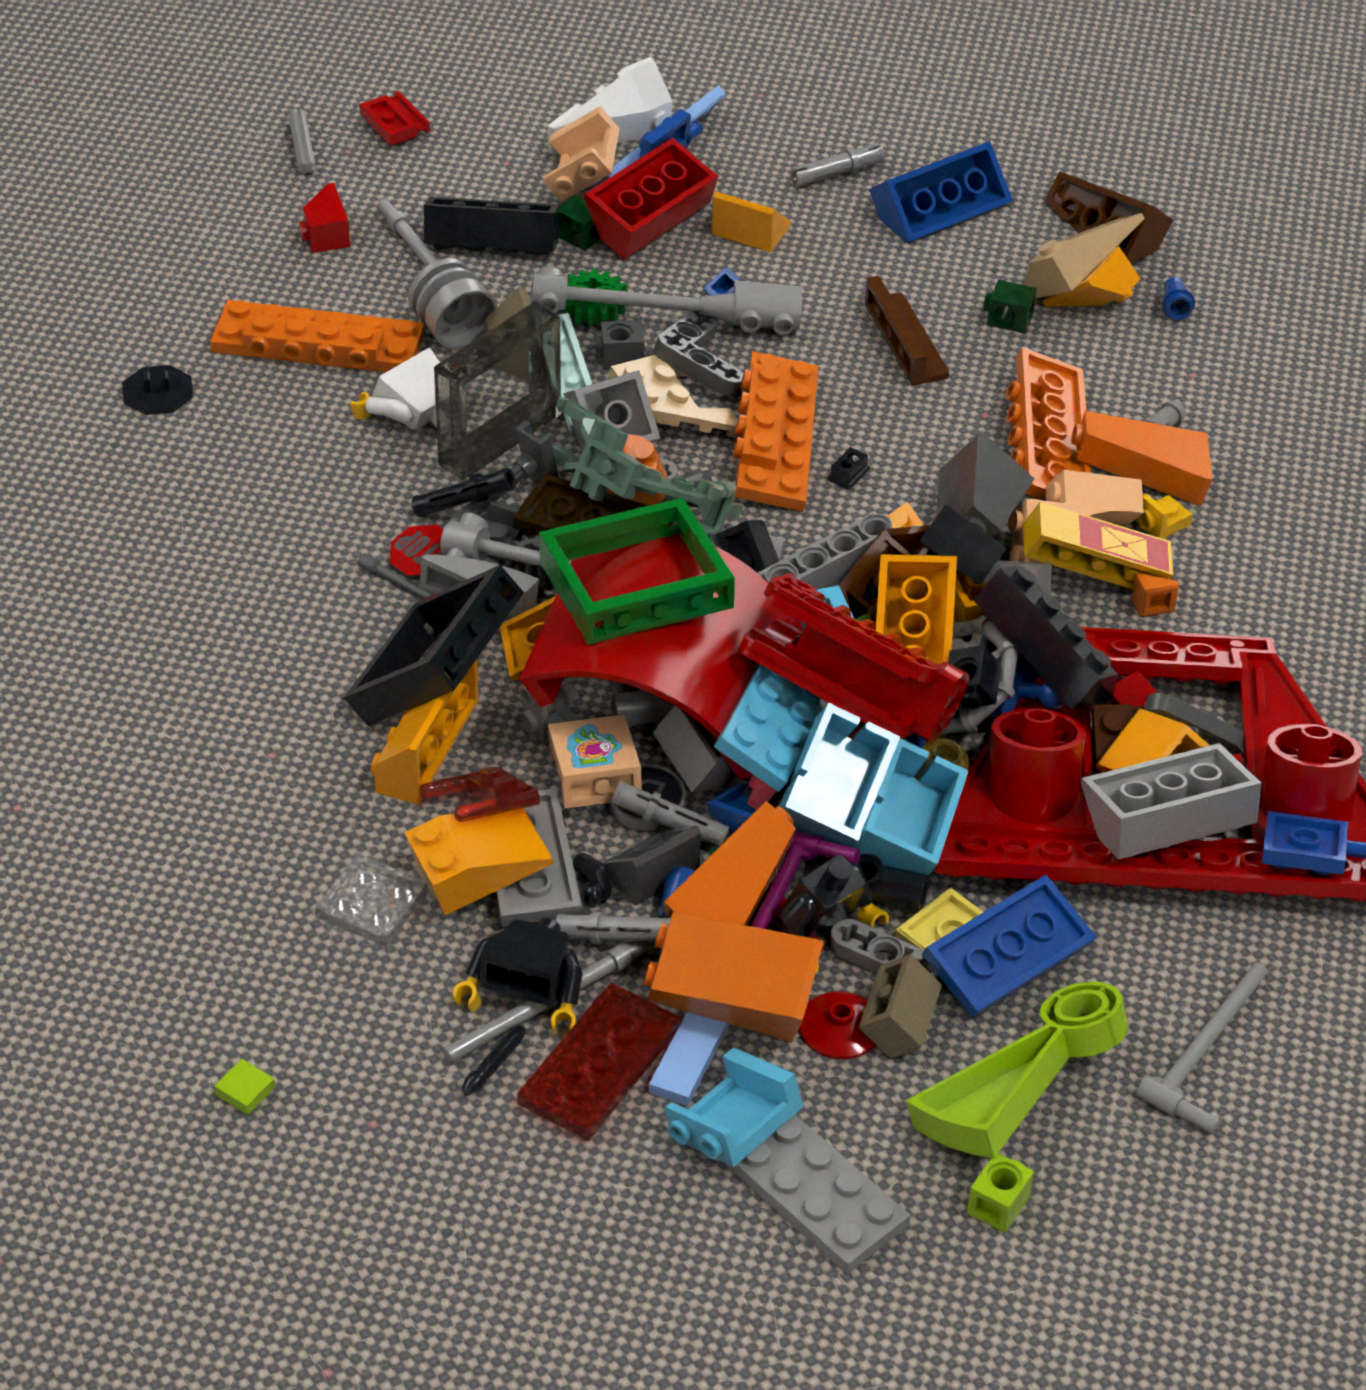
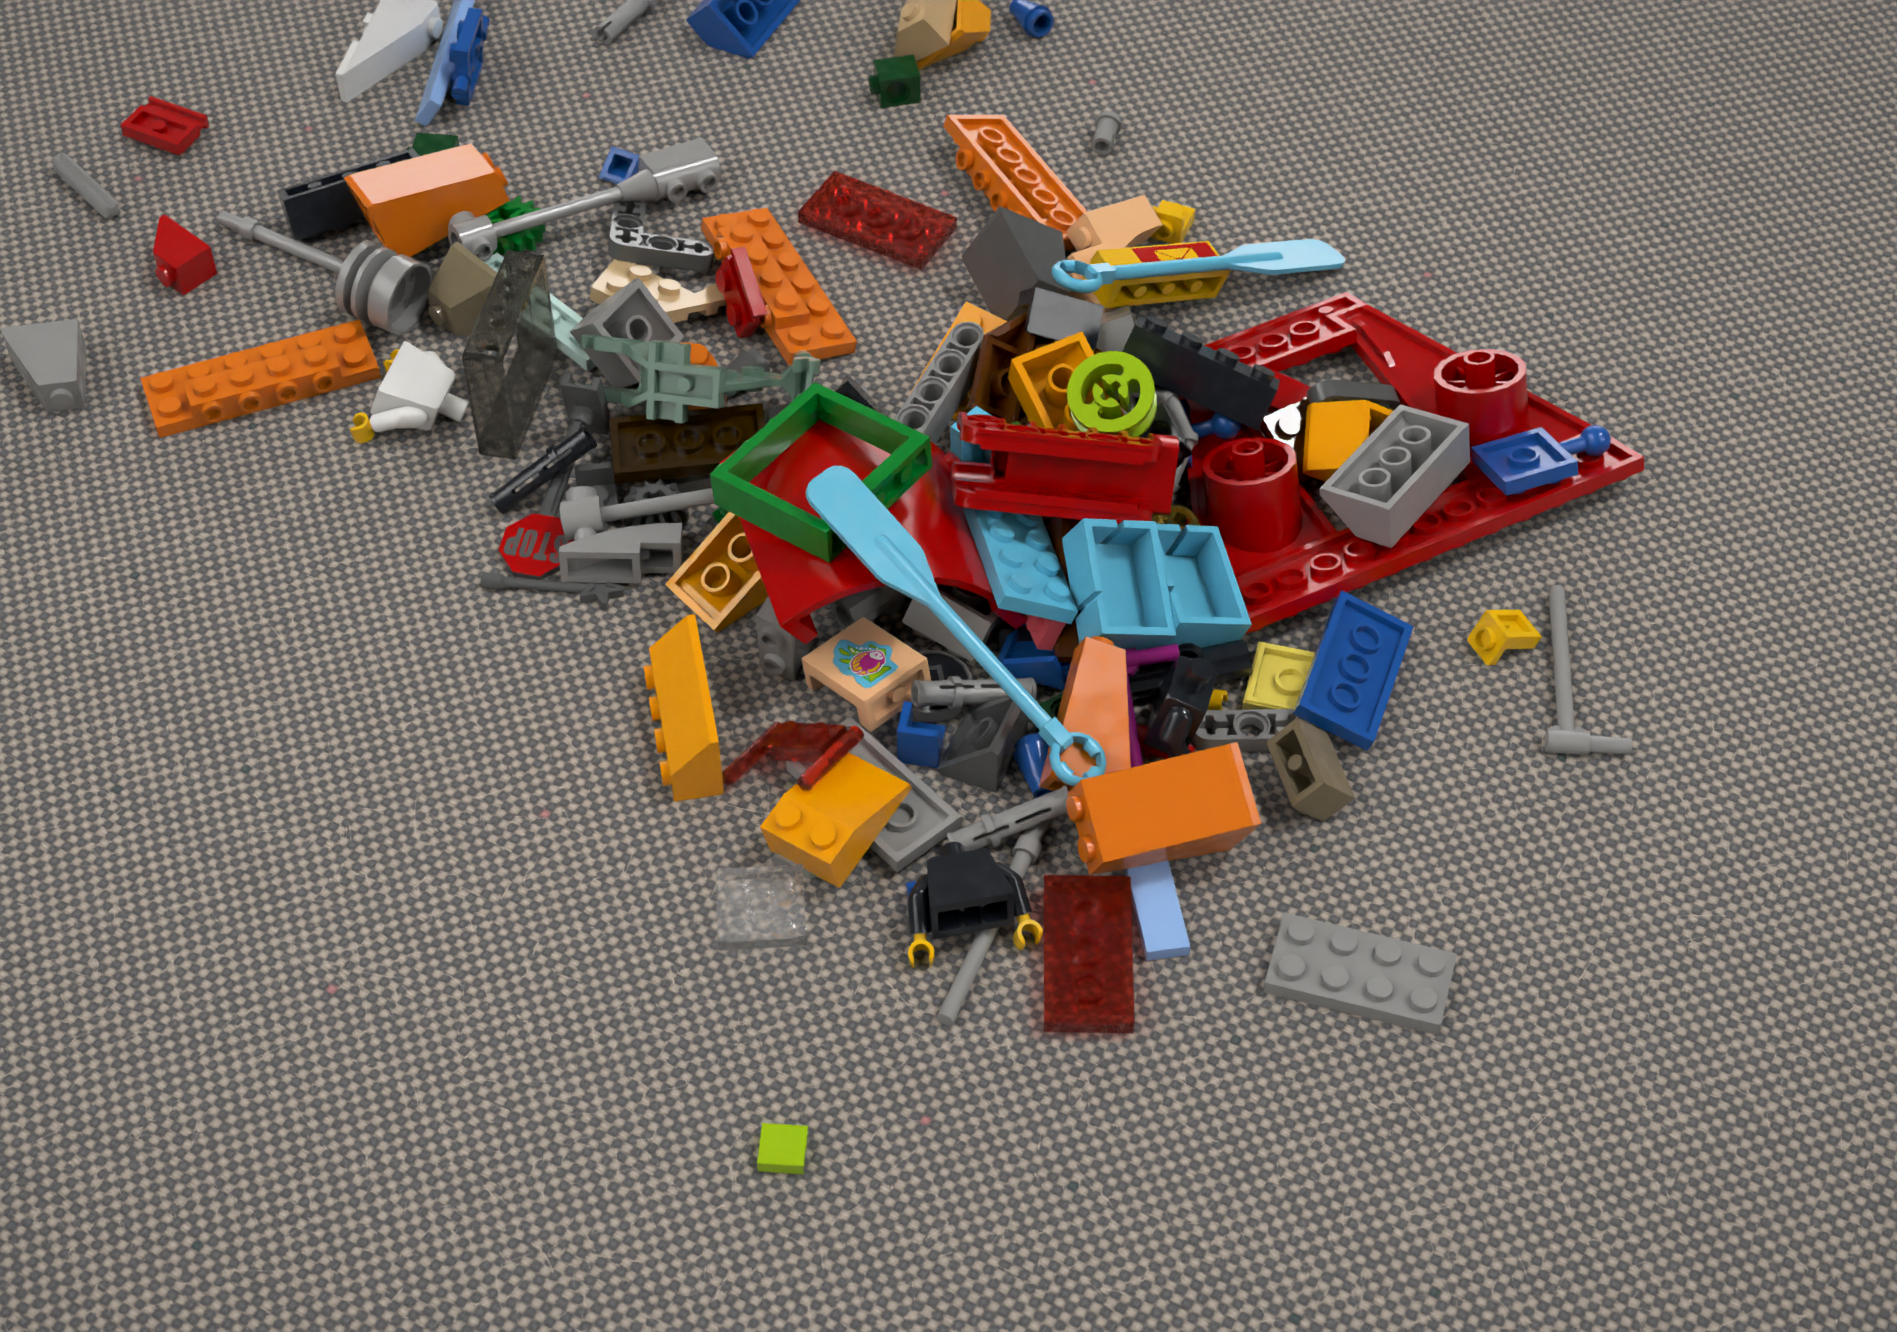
camera: 30 degrees left, 5 degrees up
(157, 389) = (135, 500): black piece -> none
(173, 261) = (50, 361): none -> light grey slope
(470, 618) = (685, 561): black window -> none
(477, 1079) = (990, 1026): black piece -> none
(520, 241) = (417, 197): none -> orange slope
(585, 151) = (392, 89): light nougat panel -> none
(596, 832) = (918, 741): none -> blue panel
(599, 886) = (956, 789): black arm -> none
(620, 342) = (571, 262): dark grey brick -> none
(637, 667) = (902, 565): none -> medium azure piece
(650, 197) = (493, 101): red slope -> none
(731, 408) = (741, 292): none -> red plate
(738, 1110) = (1246, 935): medium azure panel -> none
(747, 222) = (595, 96): light orange slope -> none
(833, 1026) = (1277, 816): red dish -> none
(846, 471) = (869, 303): black piece -> none
(903, 412) = (877, 220): none -> clear red plate
(904, 334) = (814, 143): reddish brown panel -> none
(959, 613) = (1121, 377): none -> lime wheel
(991, 1098) = (1446, 815): lime piece -> none
(999, 1206) = (1514, 894): lime brick -> none
(1154, 594) = (1221, 296): orange slope -> none
(1158, 454) = (1123, 169): orange slope -> none
(1175, 977) = (1502, 631): none -> yellow bracket
(1199, 572) = (1261, 258): none -> medium azure piece

